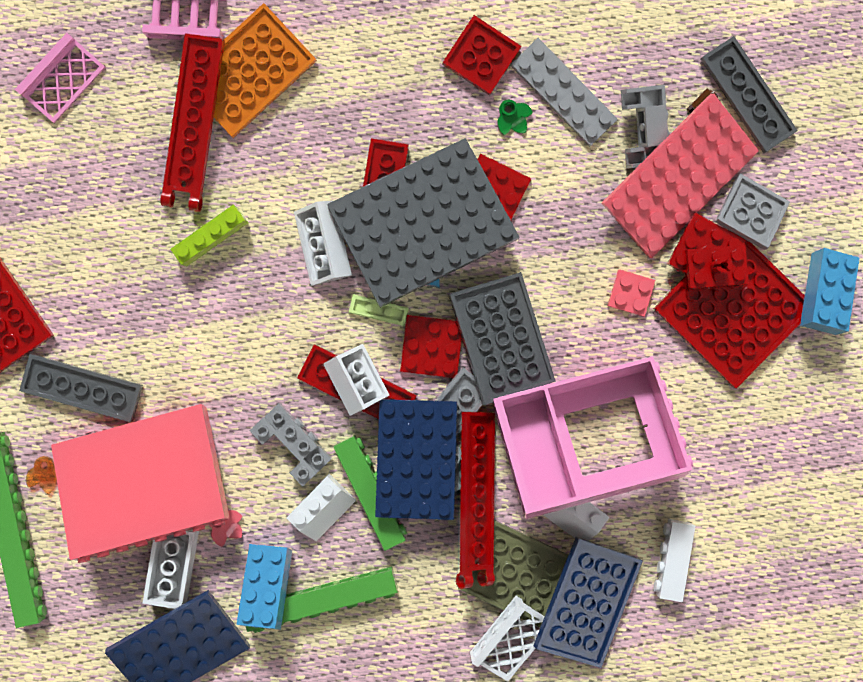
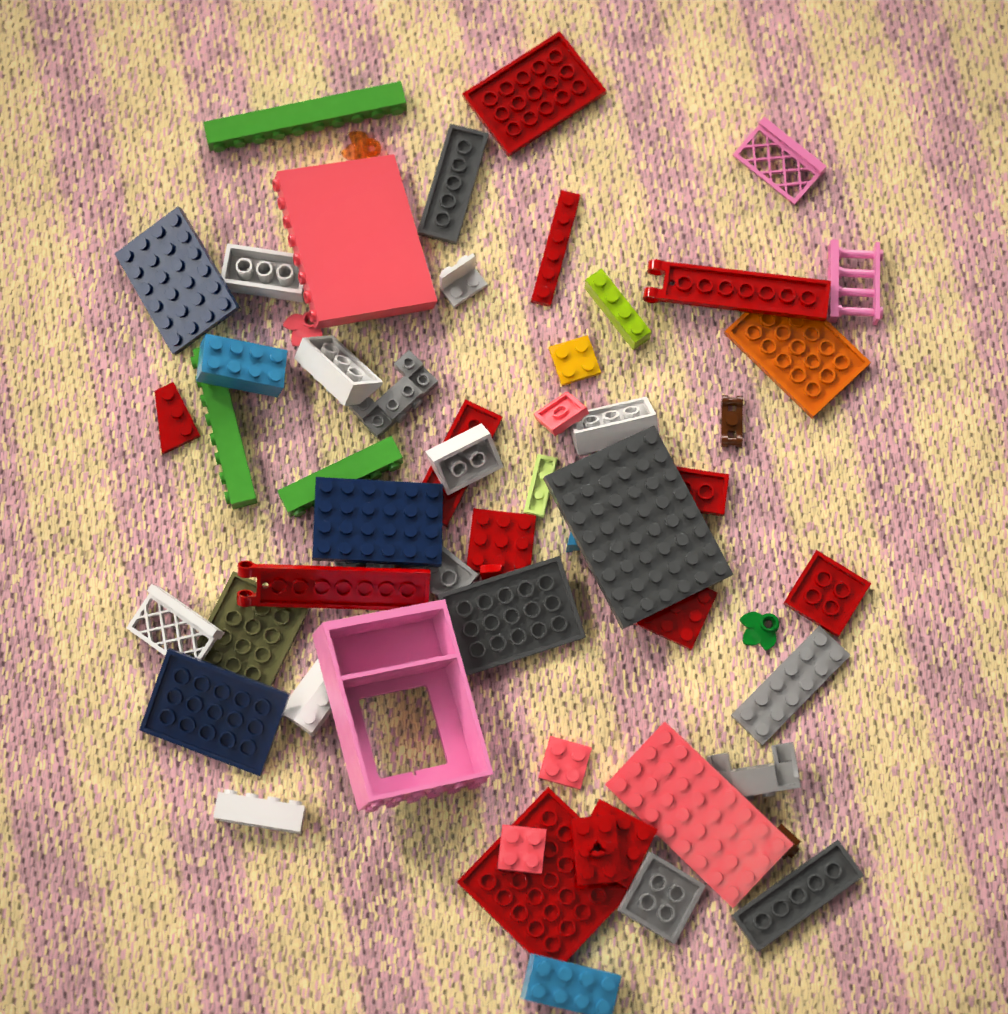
camera: 80 degrees right, 15 degrees down
(147, 292) = (555, 248): none -> red plate
(180, 380) = (461, 281): none -> white bracket
(258, 276) = (574, 360): none -> yellow plate
(268, 496) = (337, 369): none -> white slope
(312, 289) = (561, 413): none -> coral plate
(312, 644) = (174, 420): none -> red wing
(319, 134) = (731, 421): none -> reddish brown plate
(321, 508) = (323, 426): white slope -> none
(460, 356) = (490, 570): none -> red slope
(710, 331) = (521, 849): none -> coral plate

